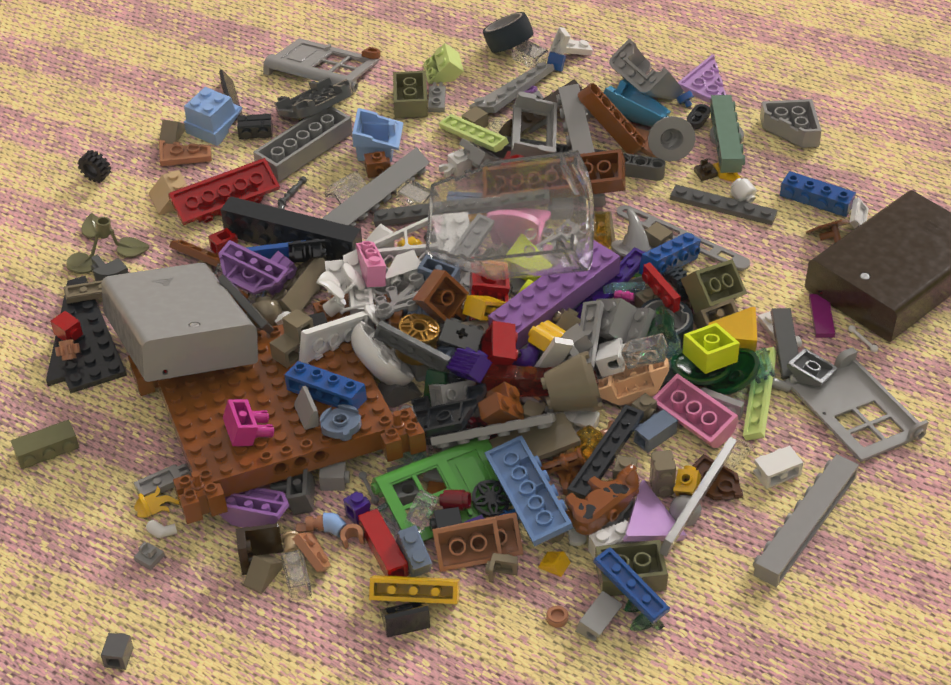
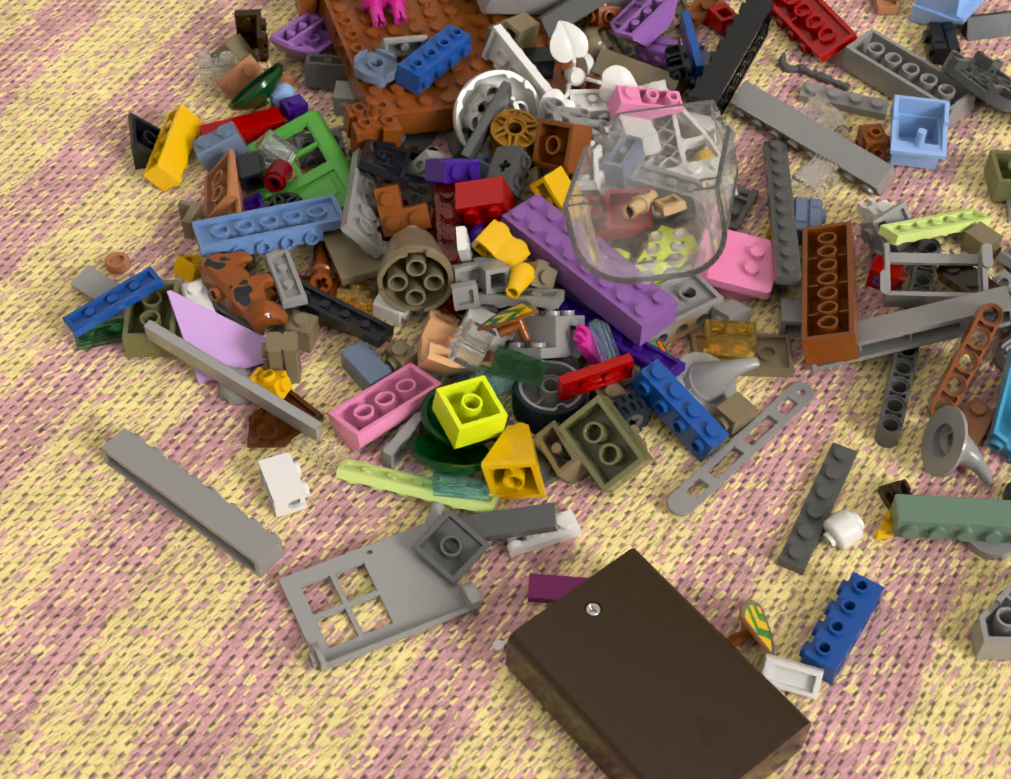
camera: 90 degrees right, 5 degrees up
(320, 182) = (847, 101): none -> light grey plate
(335, 522) = (258, 90): none -> dark green dish
(502, 237) = (669, 205): none -> tan tile
(502, 250) = (639, 204): none -> tan pin
(579, 476) = (286, 279): none -> light grey tile
(585, 320) = (520, 278): none -> yellow cone
(597, 356) = (465, 295): none -> light grey tile
(623, 323) = (511, 320): none -> shield

